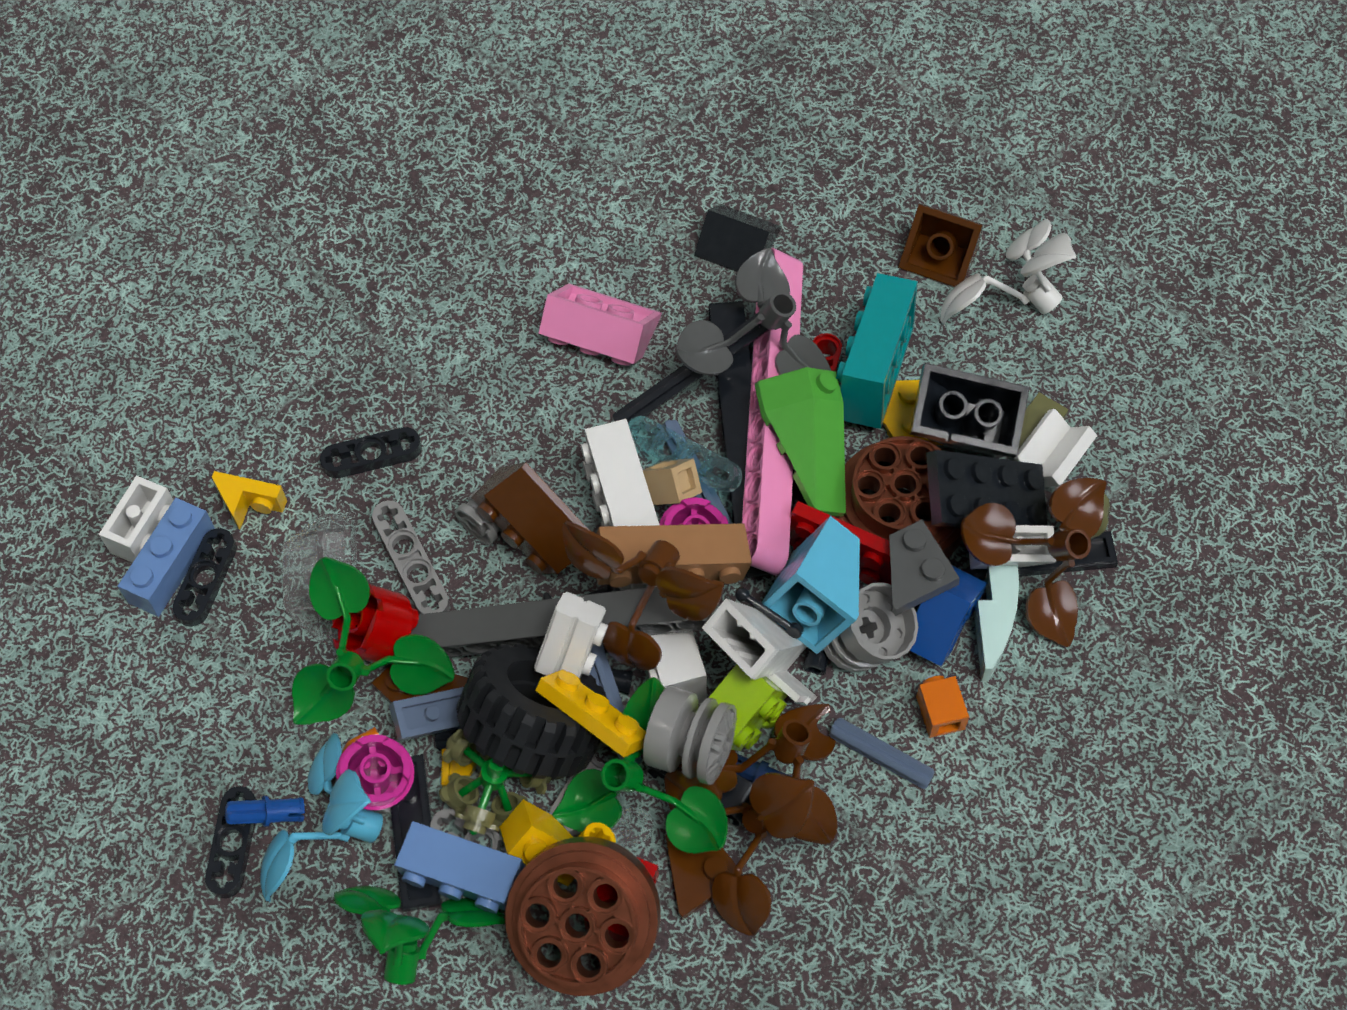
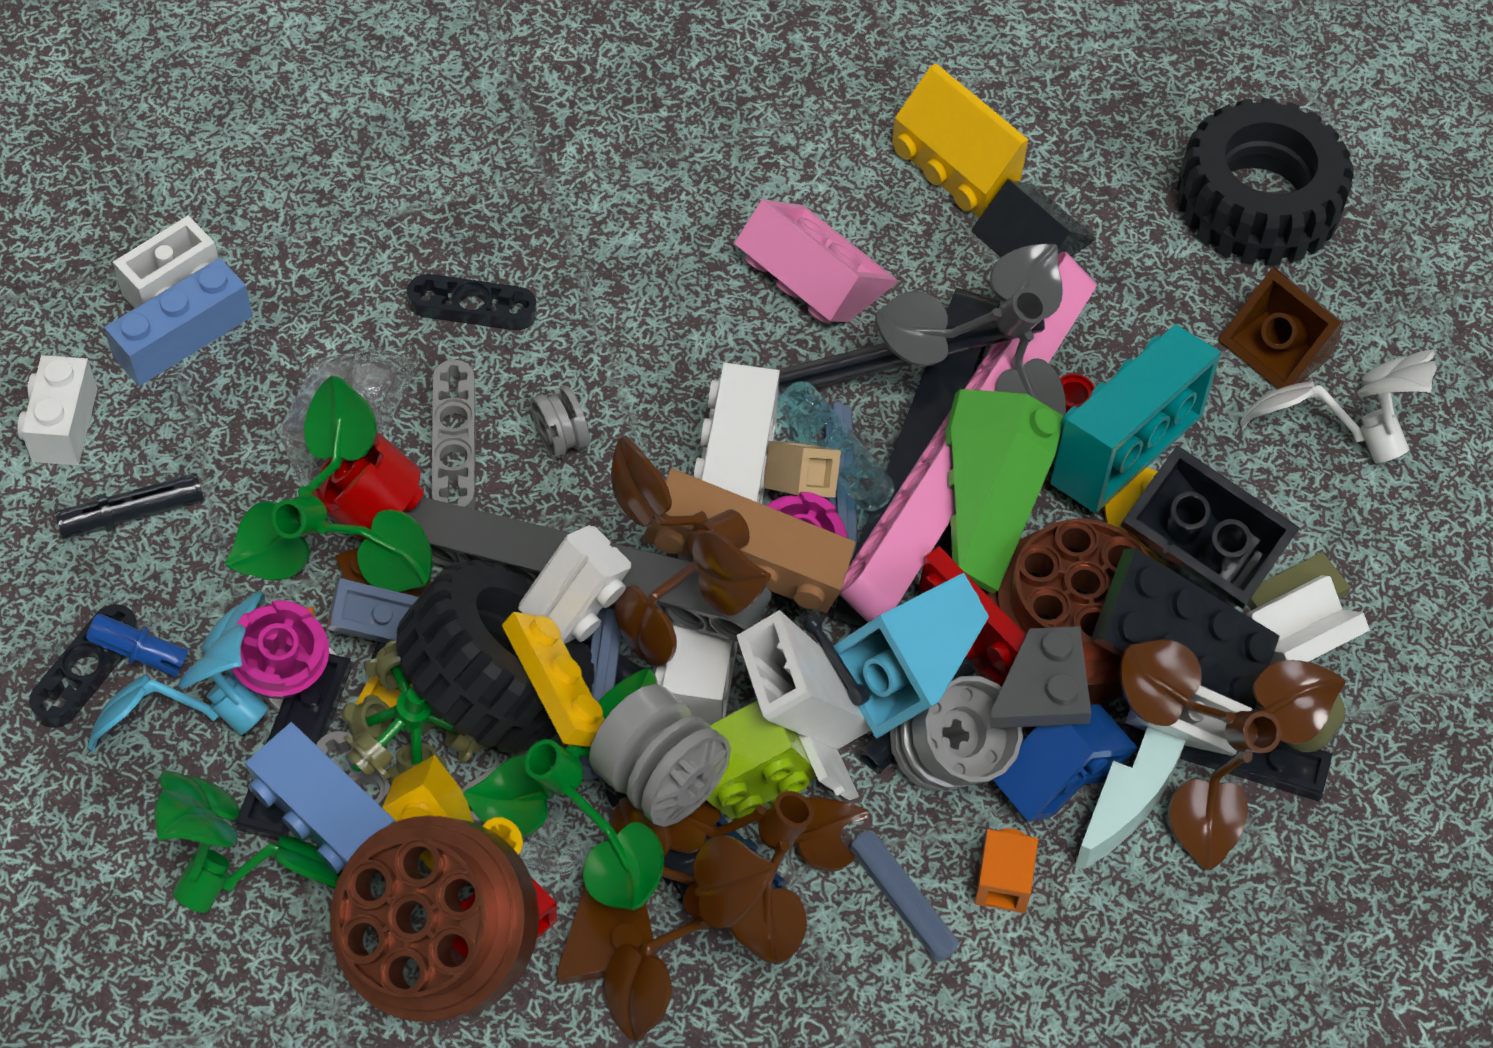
camera: 20 degrees right, 5 degrees down
(112, 661) = (58, 410): none -> white brick
(190, 719) = (127, 506): none -> black pin
(204, 603) = (215, 345): black beam -> none
(243, 492) = (301, 287): yellow slope -> none
(527, 515) = (596, 414): reddish brown slope -> none
(659, 195) = (958, 141): none -> yellow slope
(875, 173) = (1255, 221): none -> black tyre

